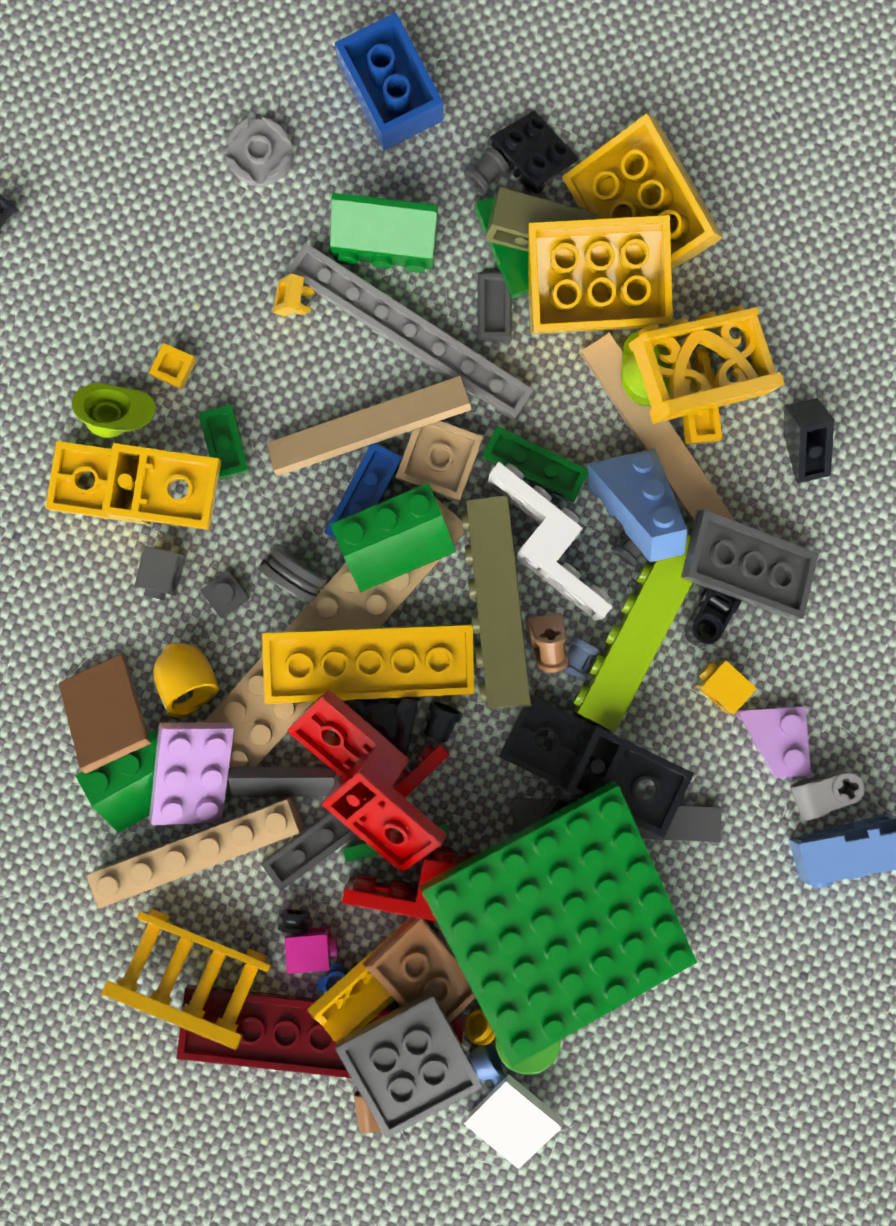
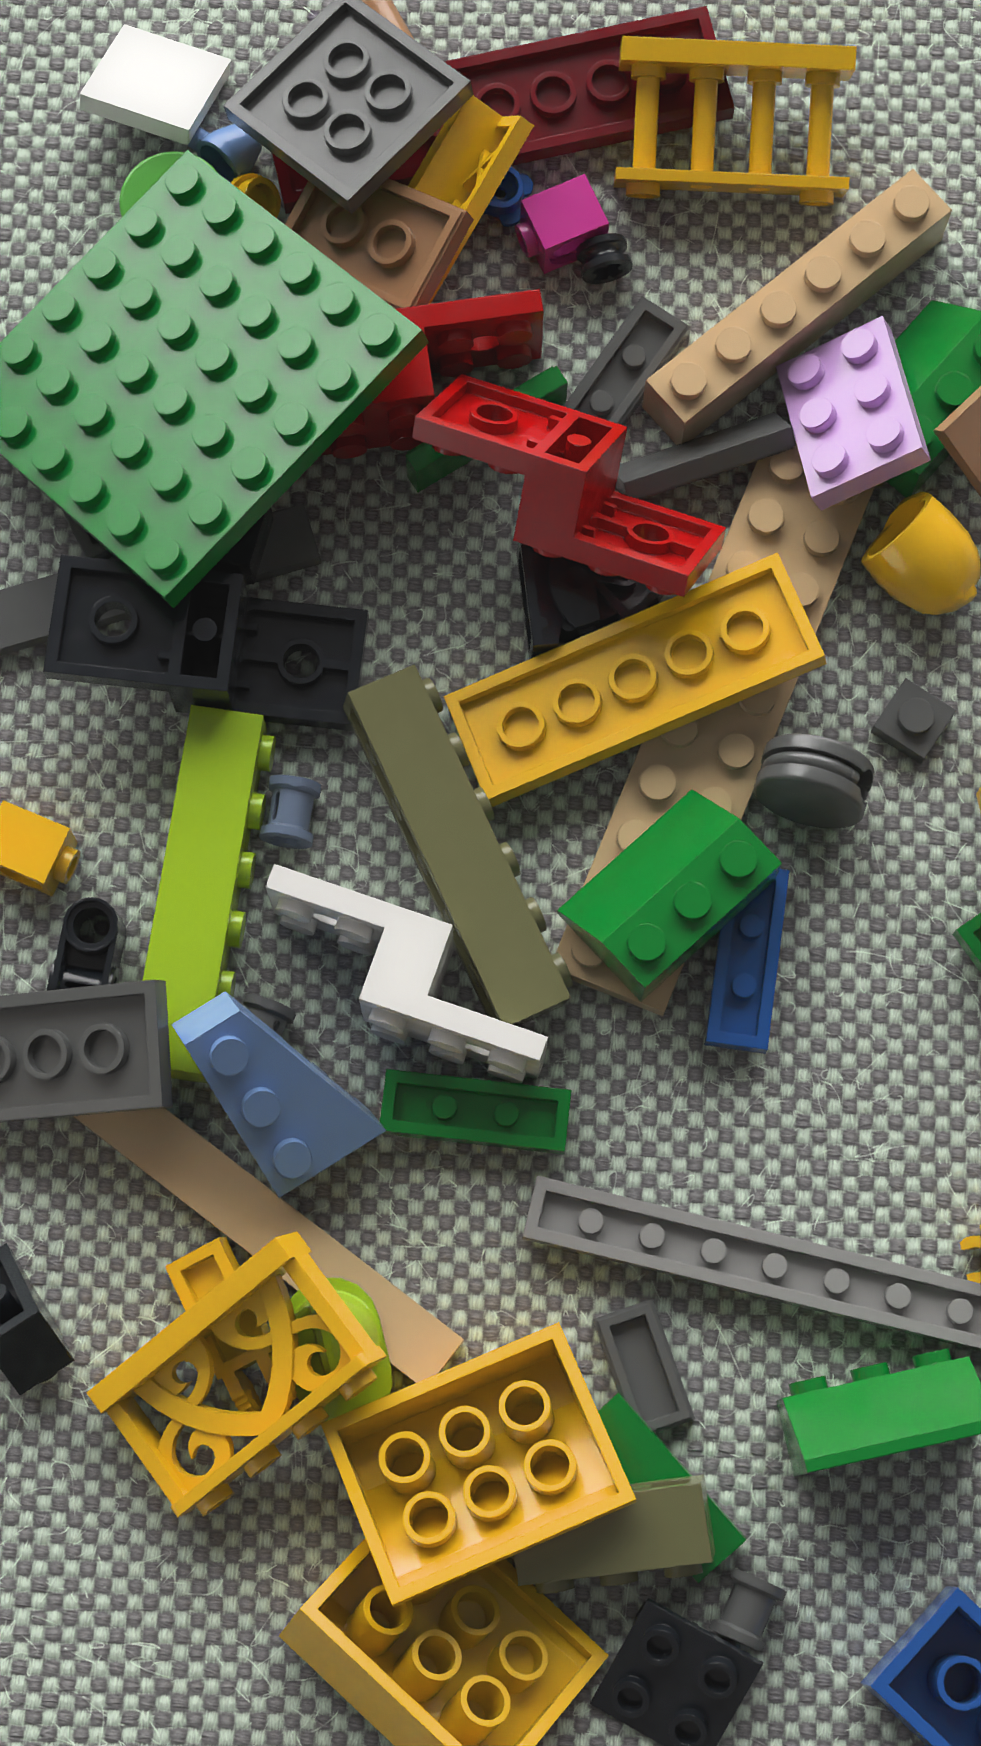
camera: 165 degrees right, 10 degrees down
(368, 426) = (781, 1073): tan tile -> none
(428, 761) = (480, 566): red plate -> none
(440, 457) = (642, 1065): tan plate -> none
(441, 721) = (481, 638): black piece -> none
(547, 639) = (349, 816): medium nougat piece -> none

